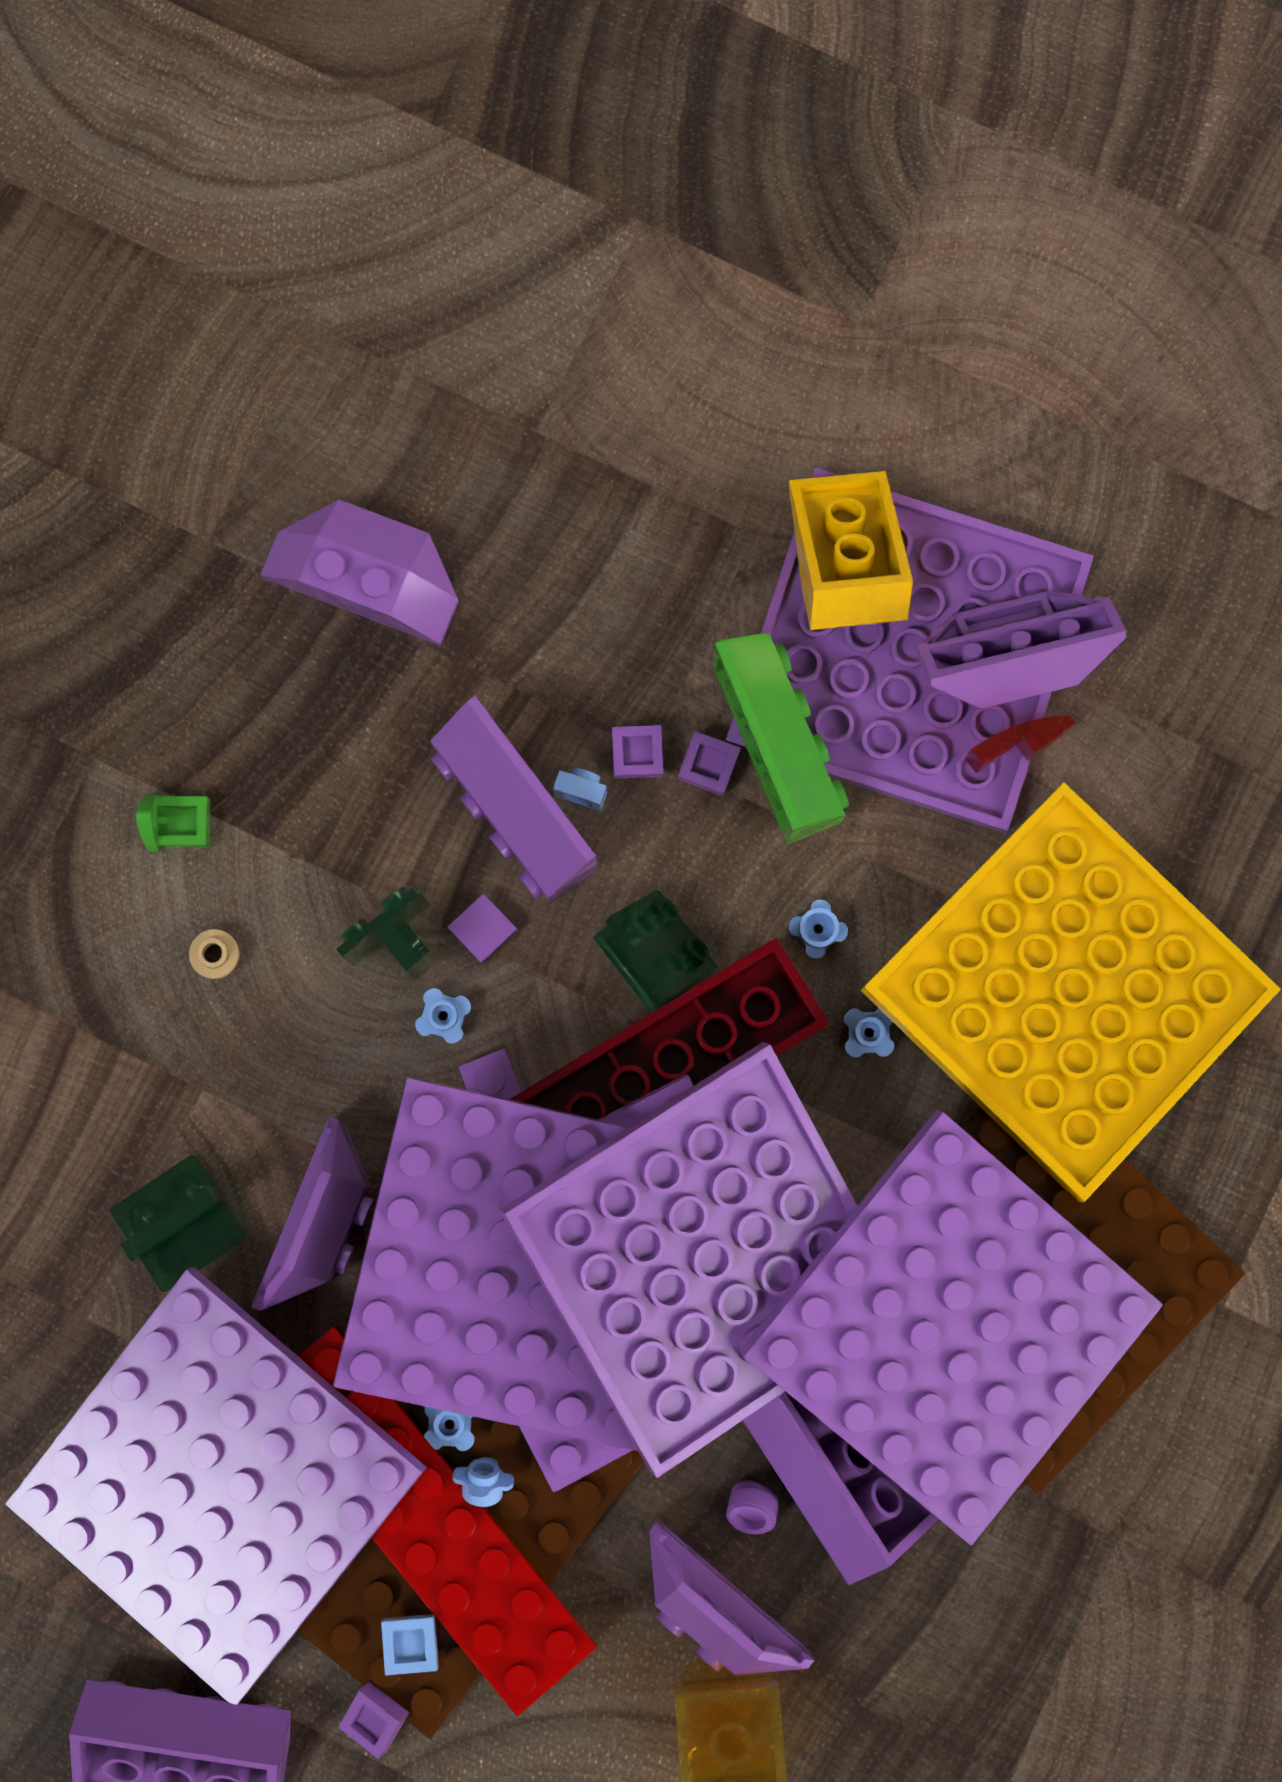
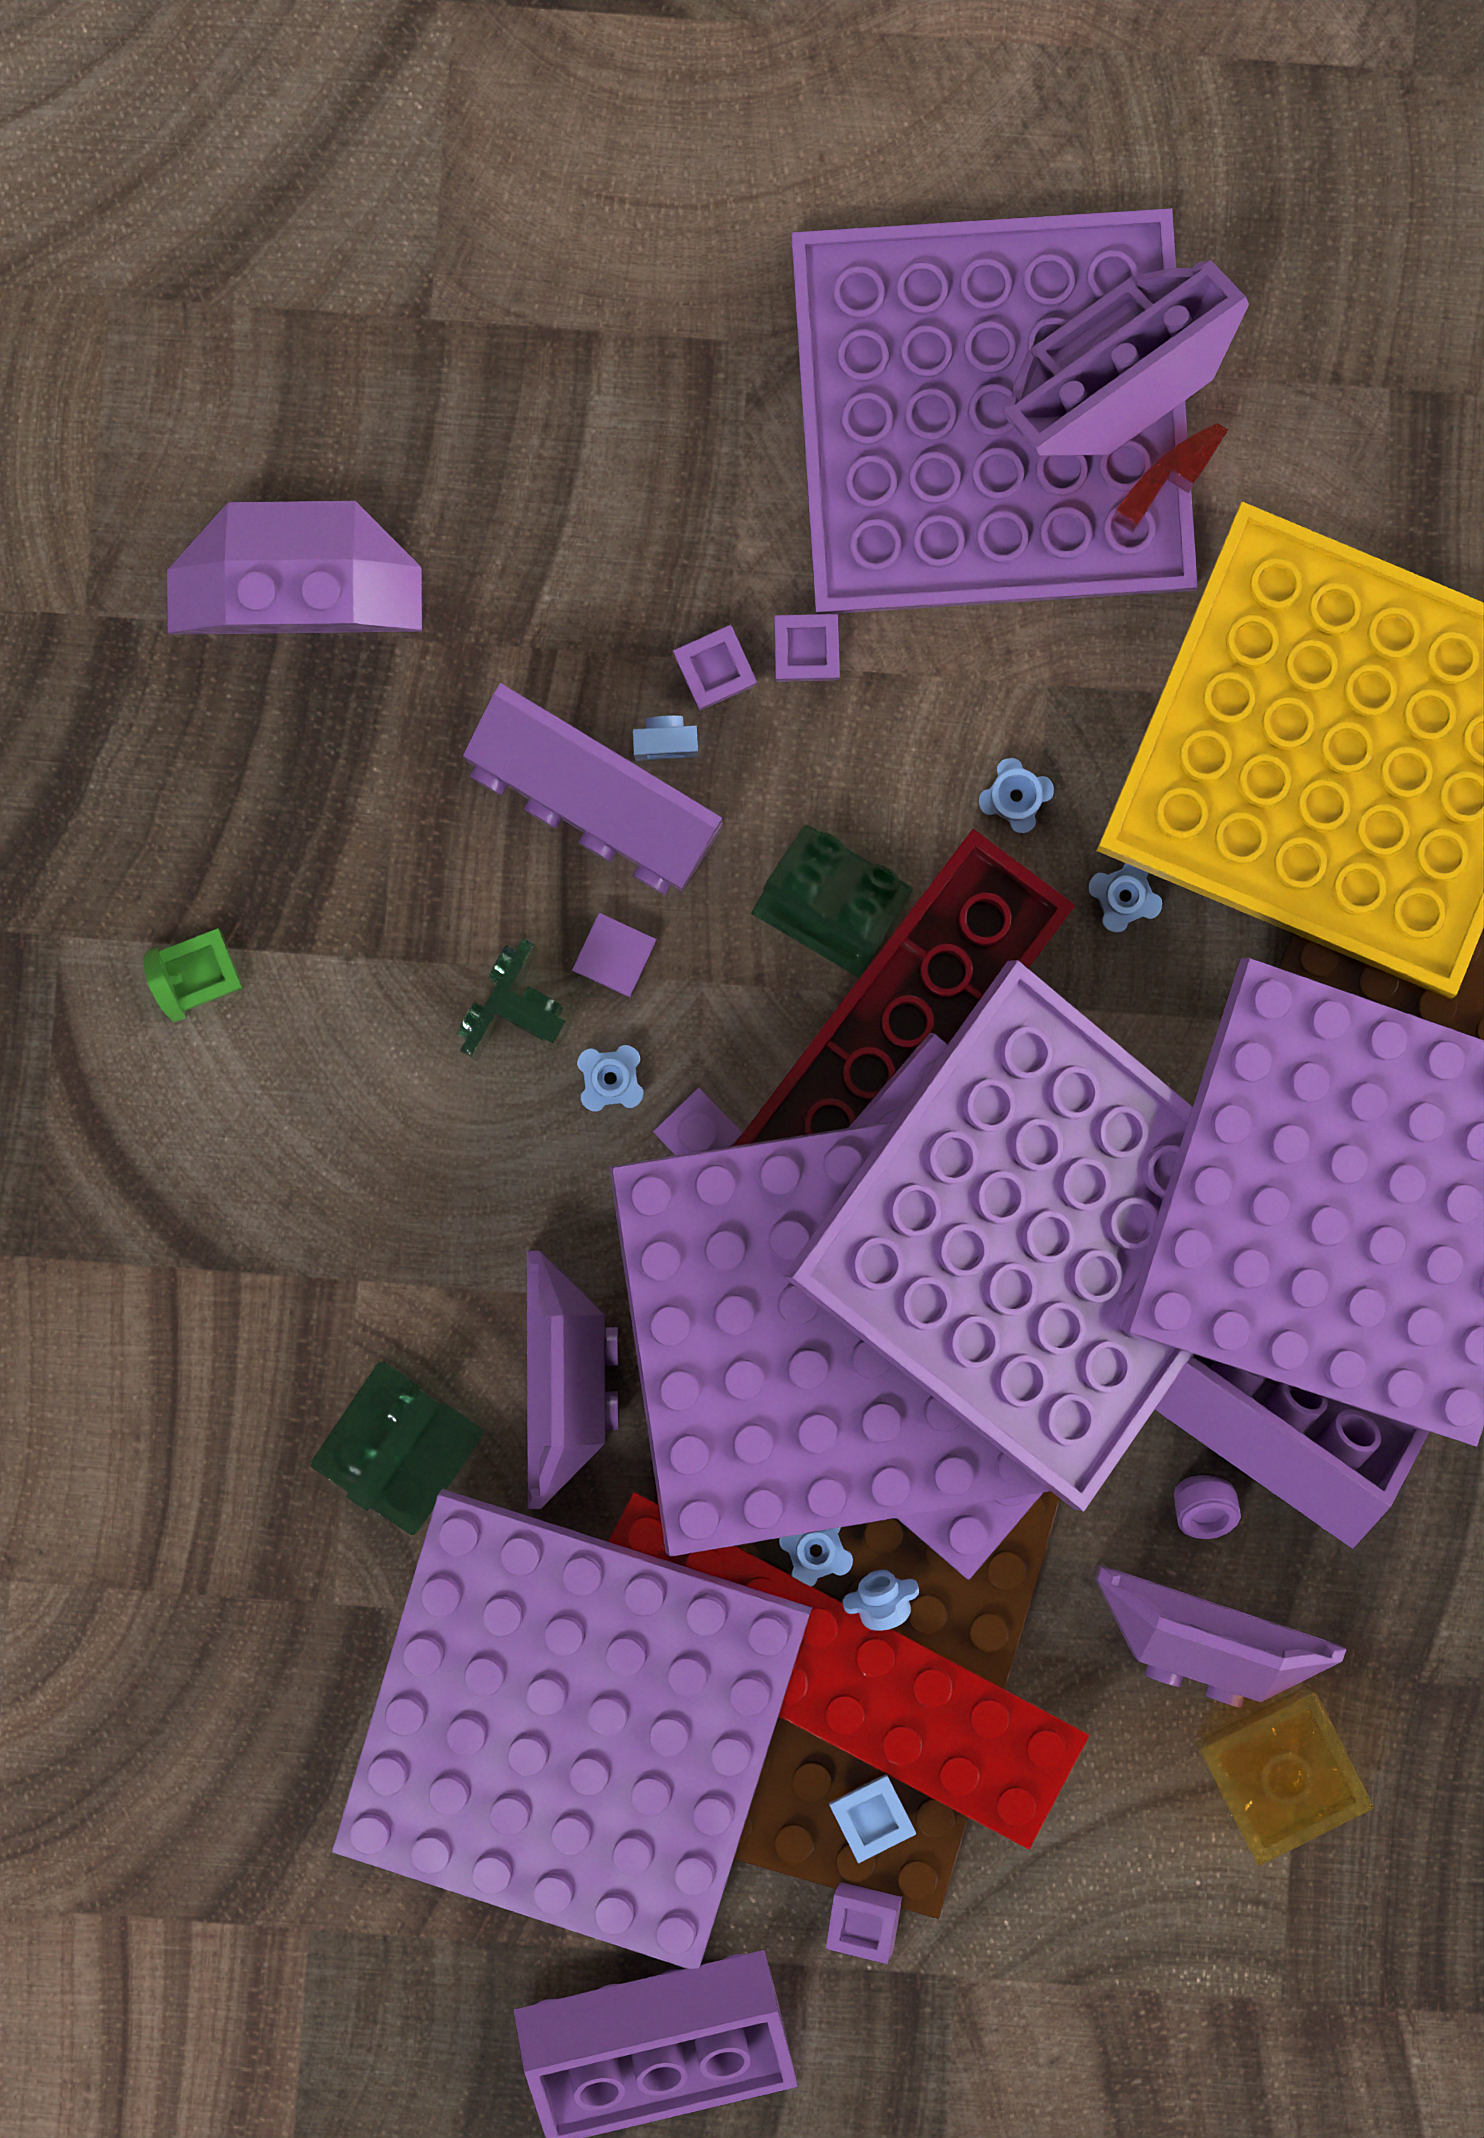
camera: 25 degrees left, 5 degrees up
(225, 964) = (326, 1118): tan plate -> none
(778, 736) = (879, 585): bright green slope -> none
(850, 550) = (875, 321): yellow slope -> none

